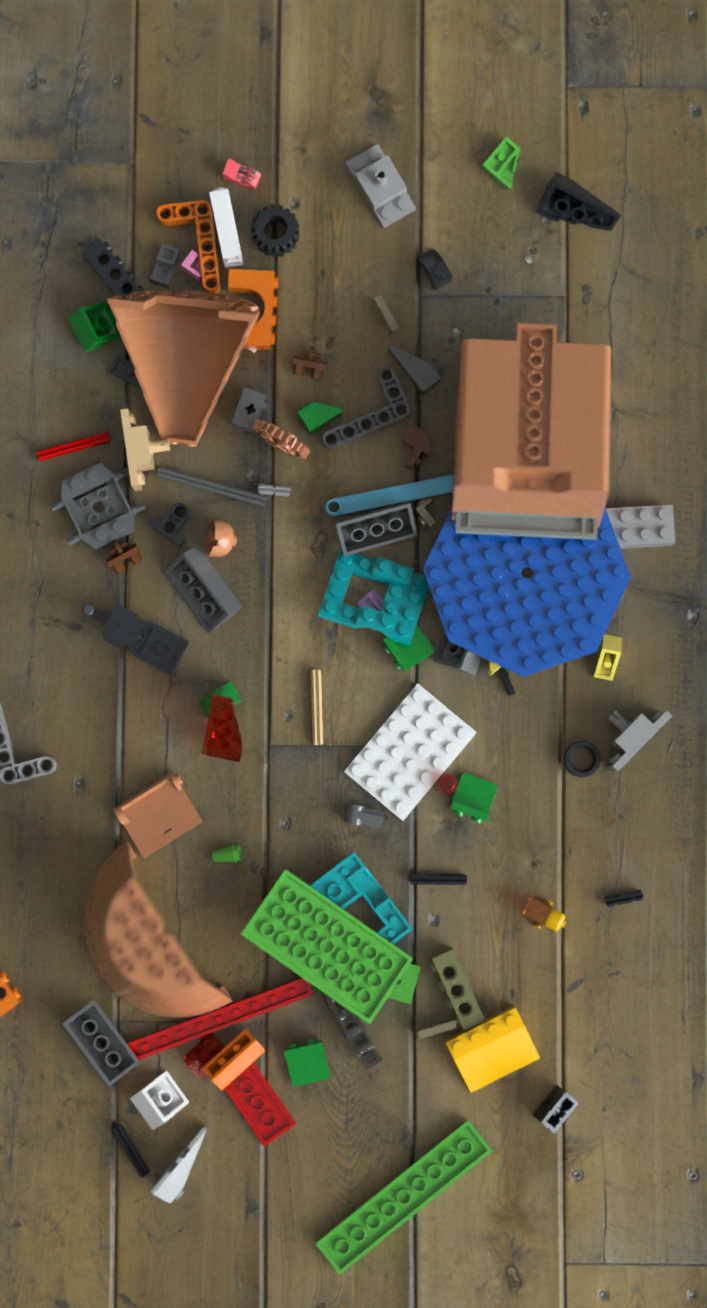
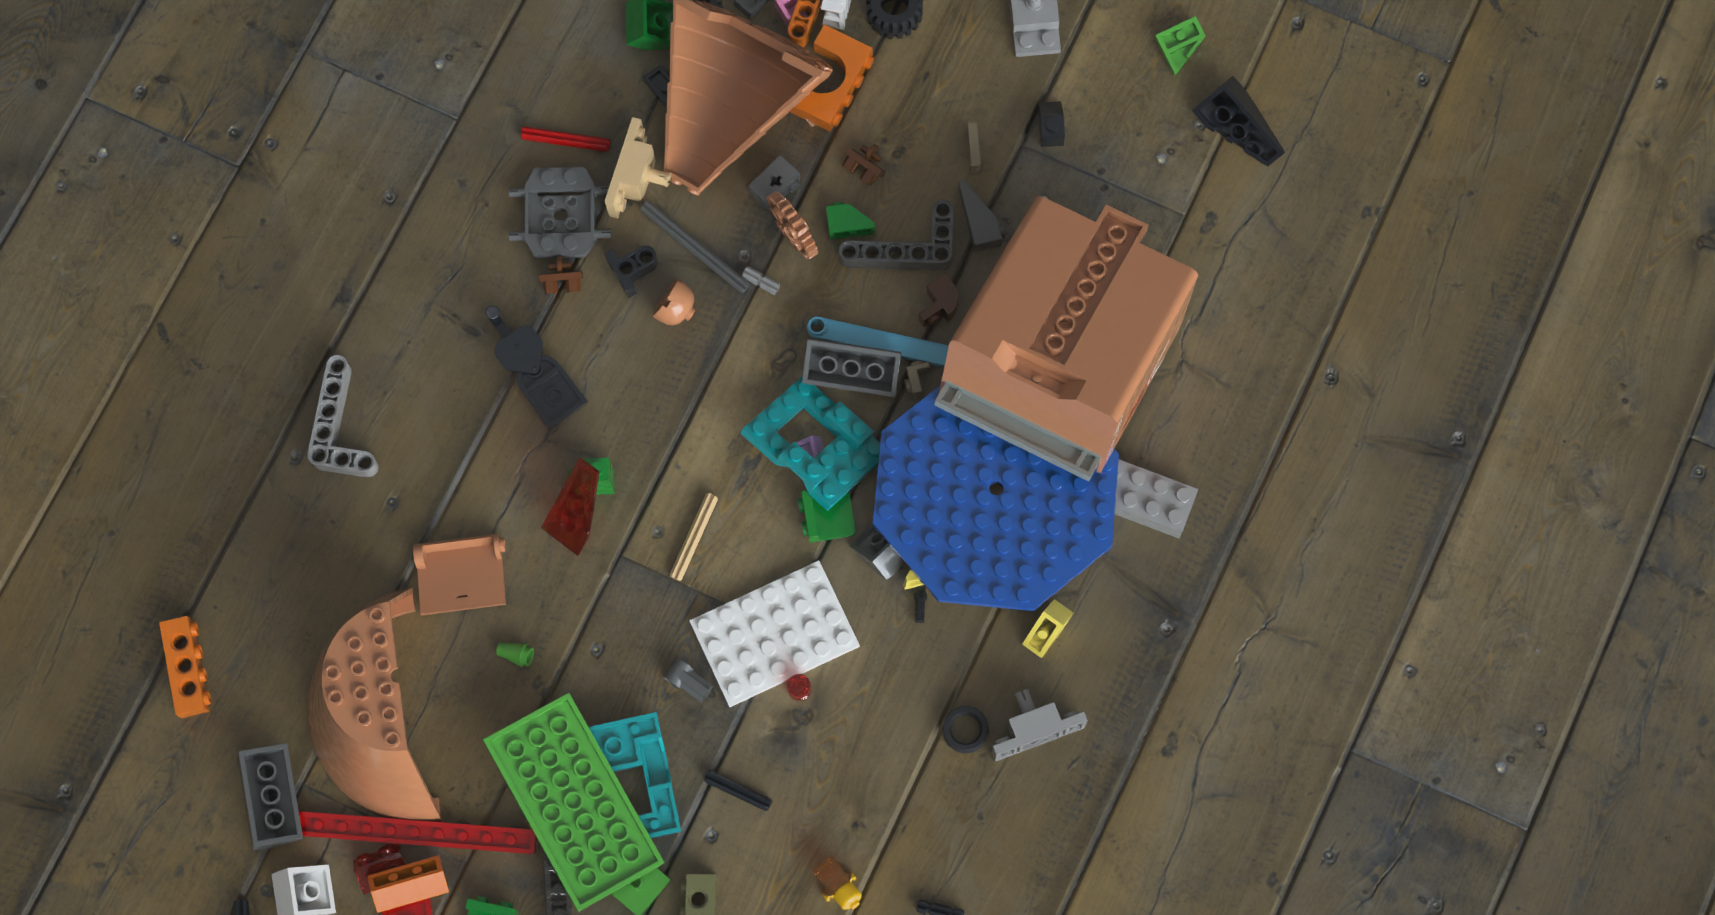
camera: 30 degrees right, 10 degrees down
(202, 589) = (630, 351): dark grey slope -> none
(473, 797) = (821, 716): green bracket -> none

